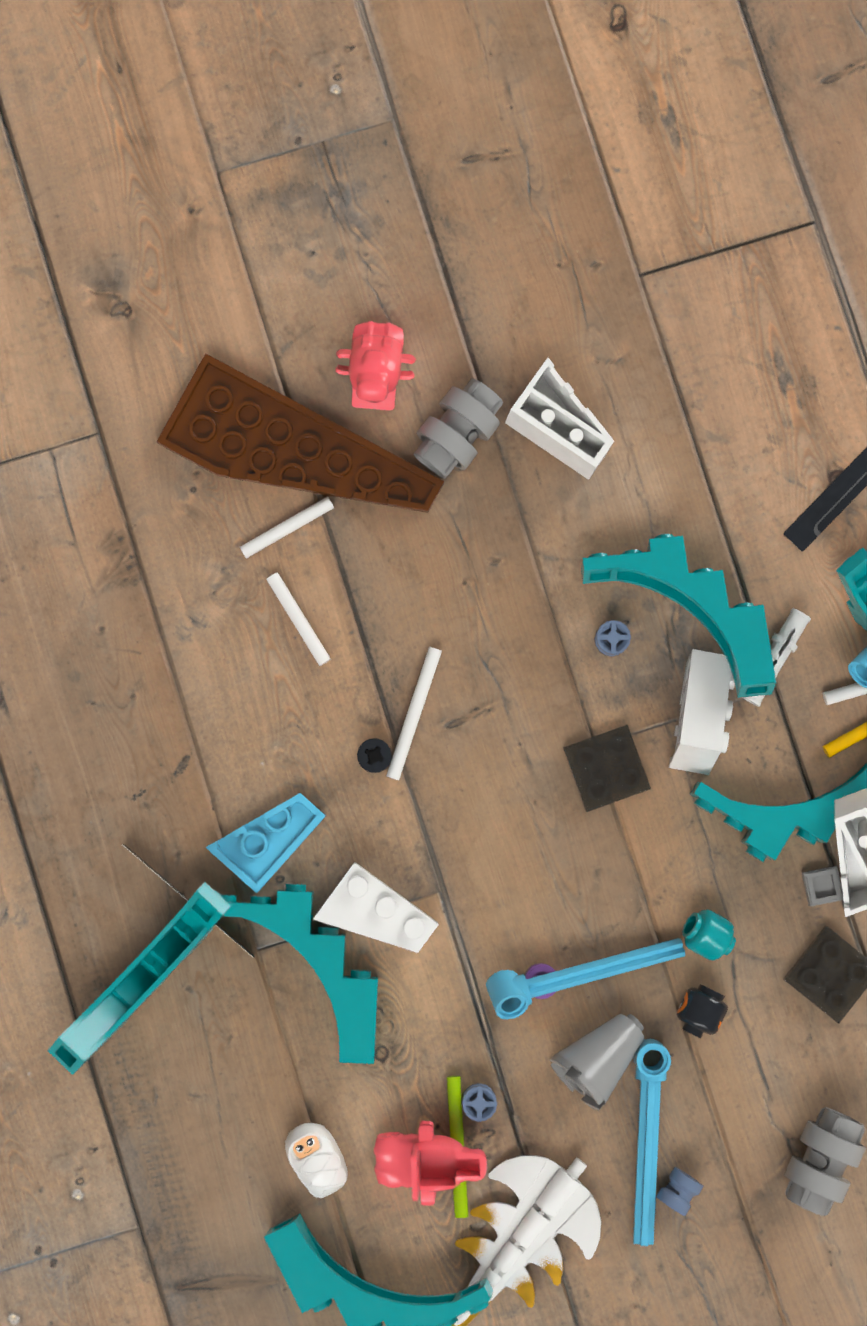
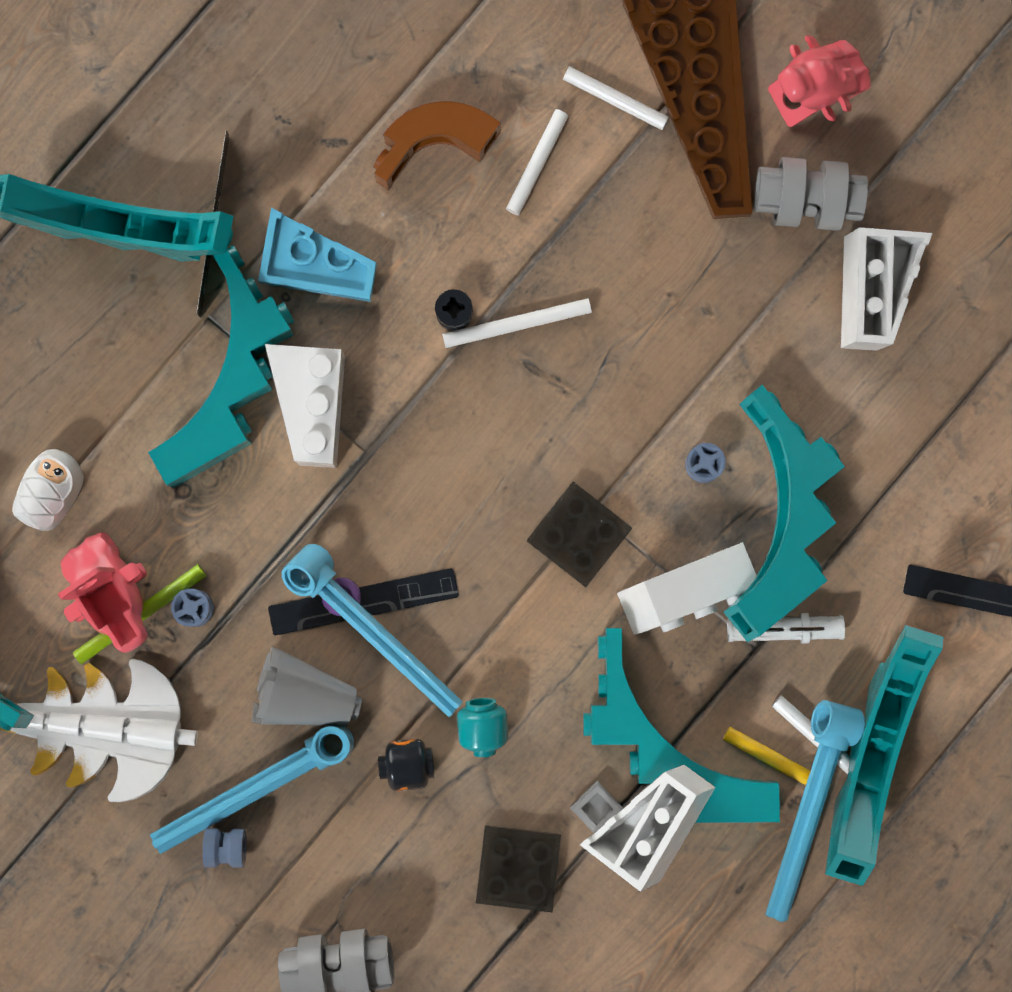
camera: 65 degrees right, 0 degrees up
(219, 679) = (430, 125): none -> dark orange arch
(559, 957) = (375, 599): none -> black sticker

